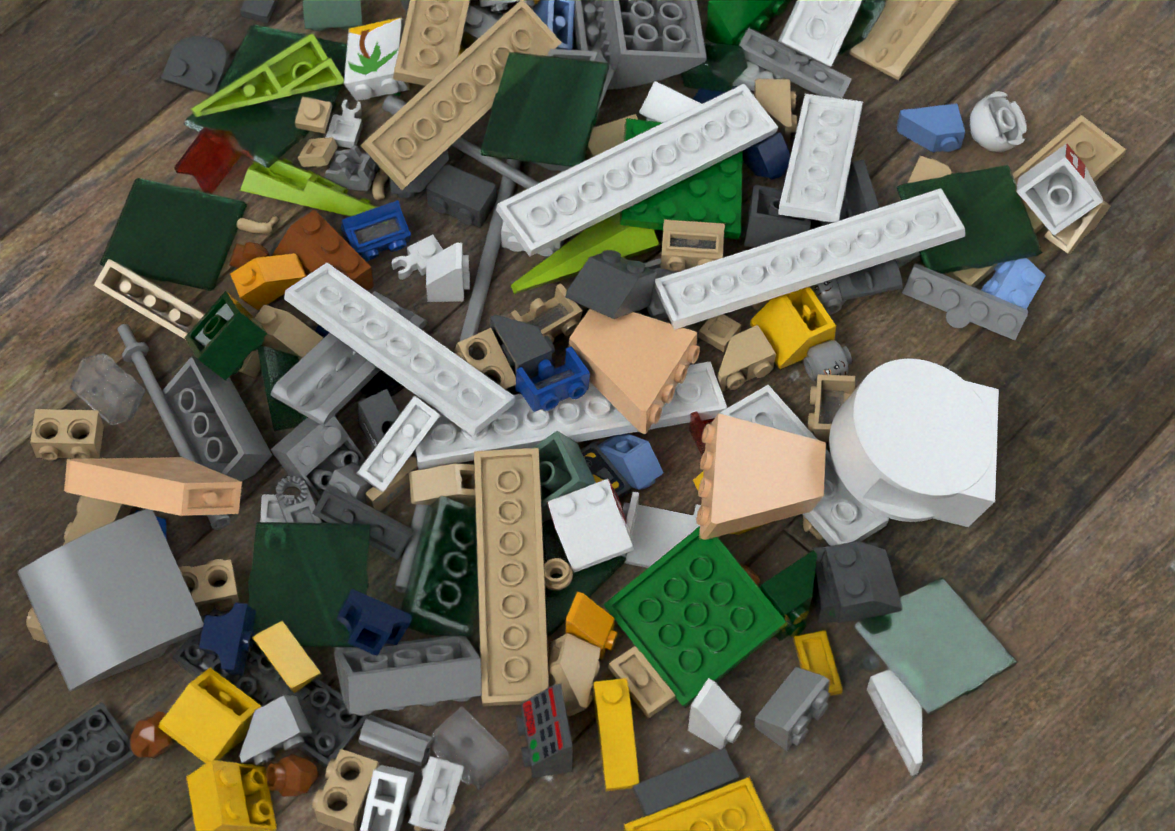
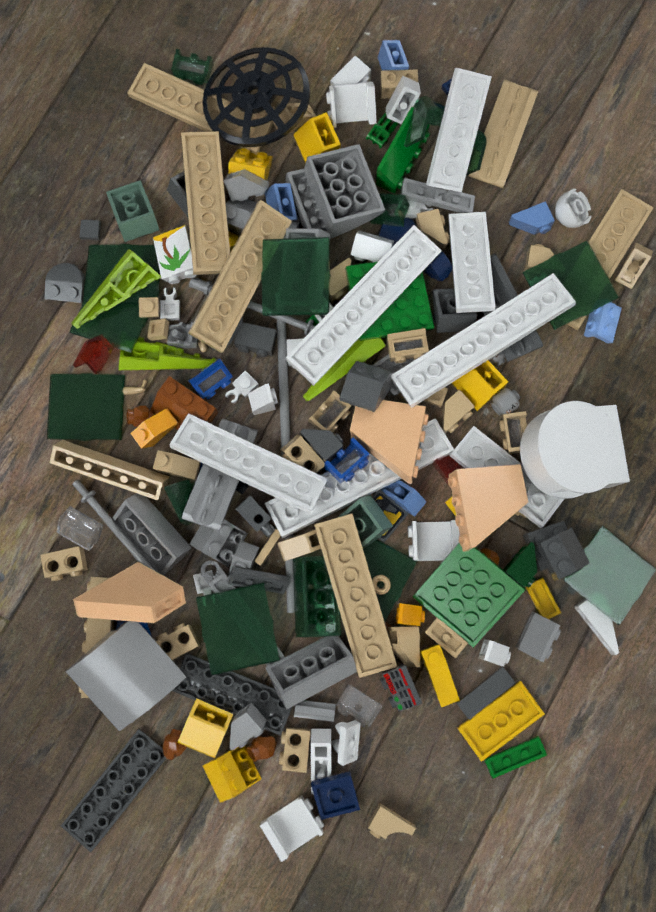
camera: 10 degrees left, 20 degrees up
(225, 336) = (141, 484): dark green slope -> none
(230, 637) = (202, 678): dark blue brick -> none
(287, 656) = (238, 679): yellow slope -> none
(372, 622) = (283, 649): dark blue brick -> none
(398, 444) = (267, 529): white plate -> none
(591, 525) = (394, 552): white slope -> none
(964, 302) = (579, 342): light grey hinge -> none
(1059, 189) = (623, 252): white slope -> none

